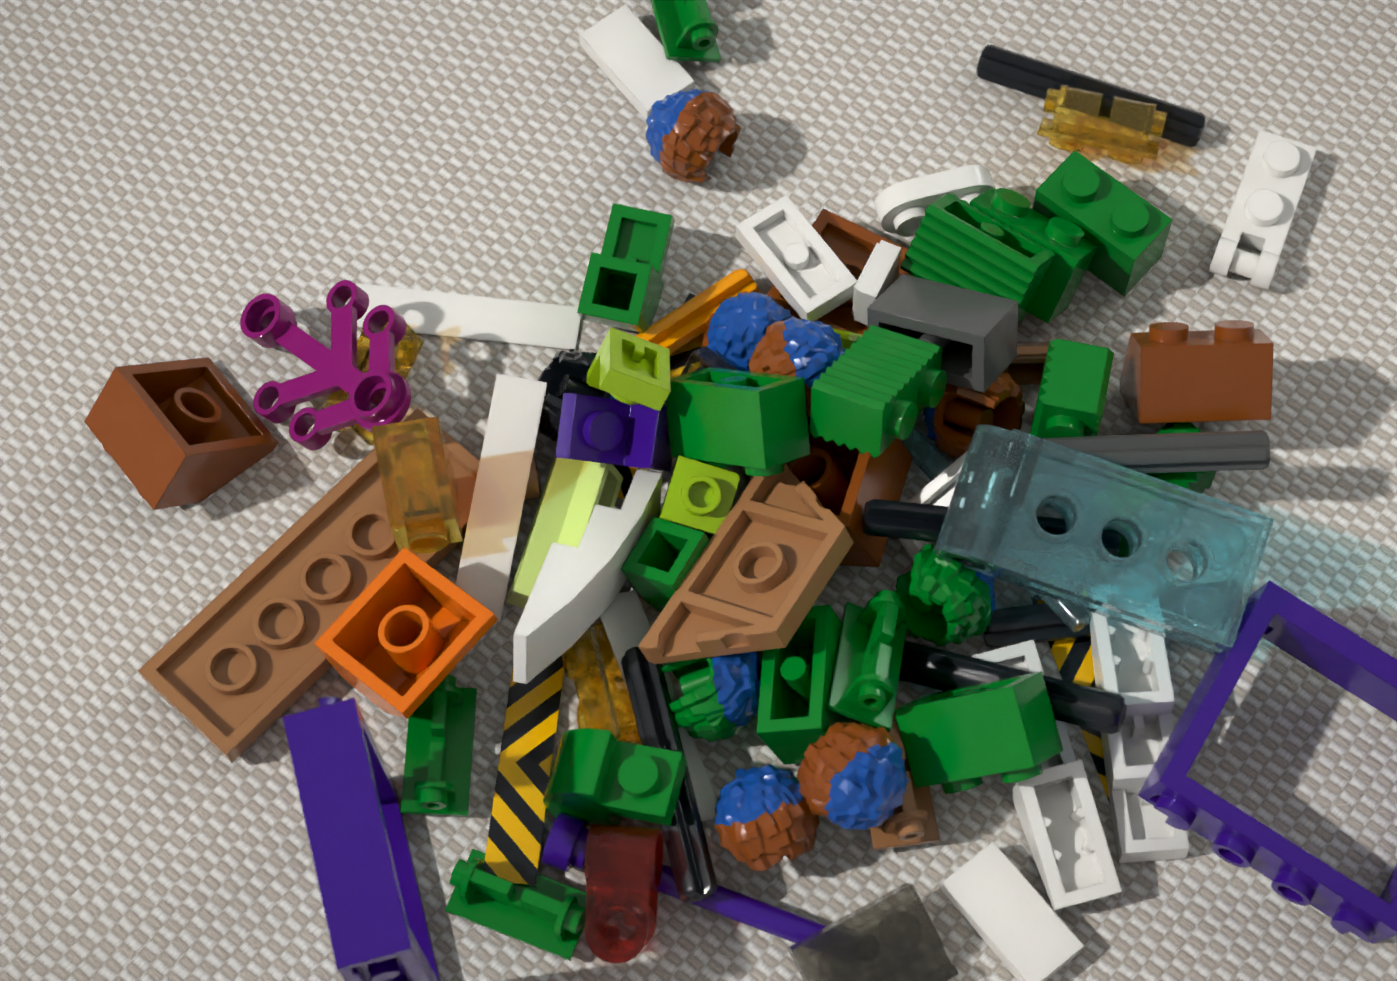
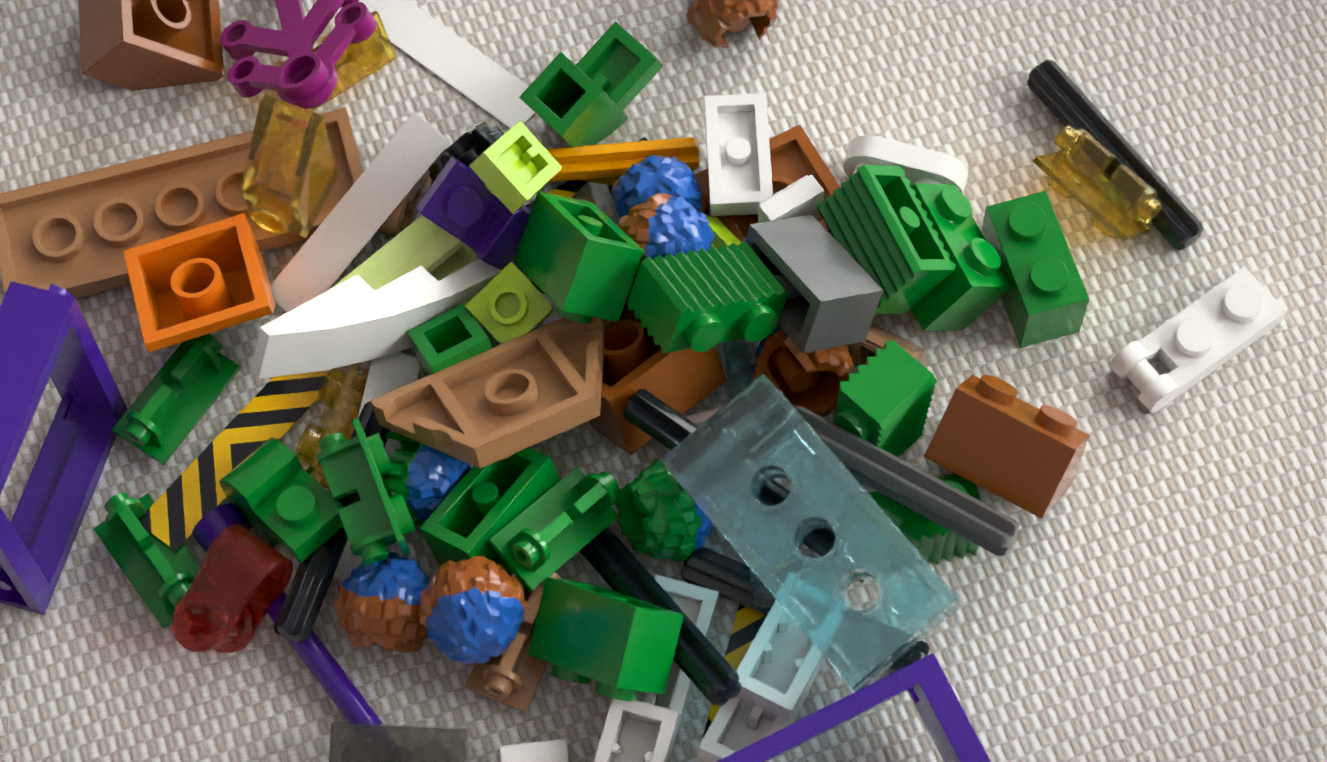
camera: 30 degrees right, 0 degrees up
(679, 708) = (357, 467): none -> green hinge

